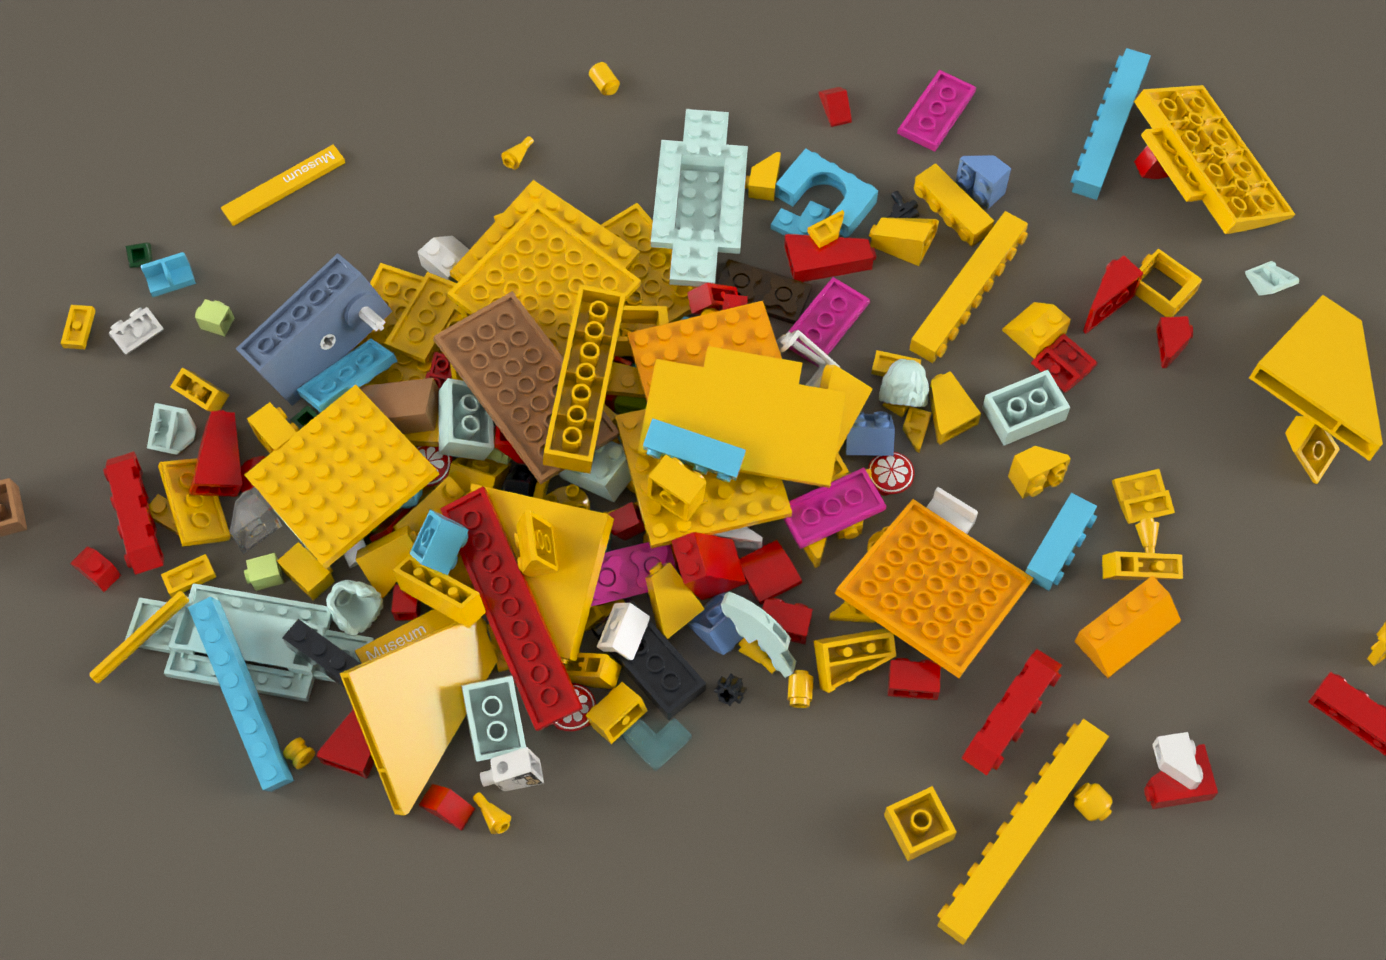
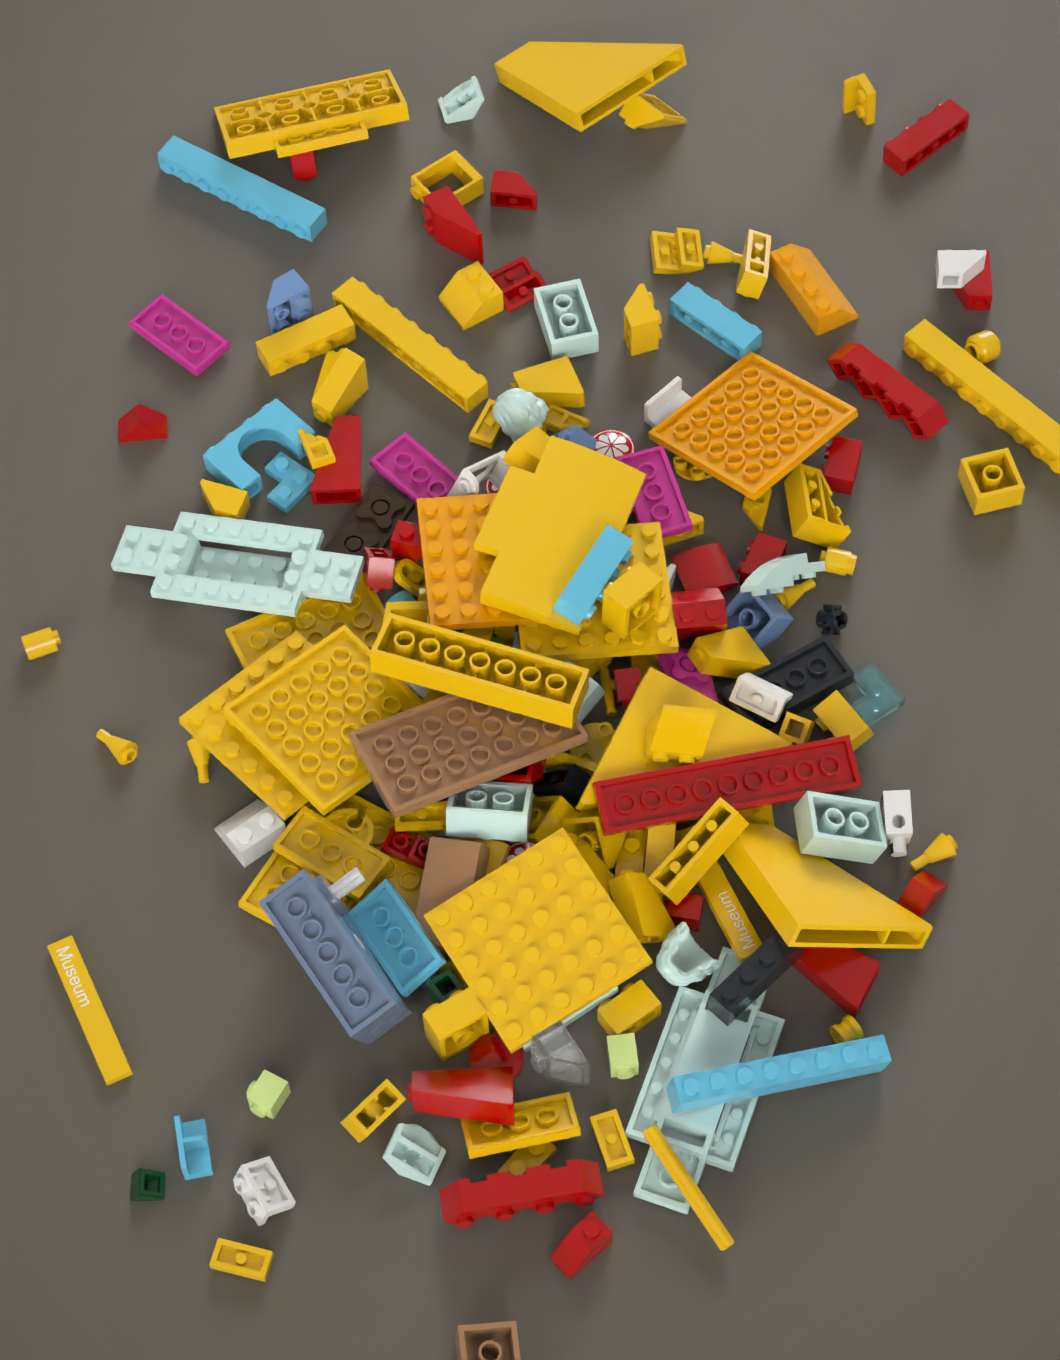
camera: 80 degrees left, 5 degrees down
(439, 542) = (647, 838): medium azure slope -> none
(903, 209) = (297, 388): black piece -> none

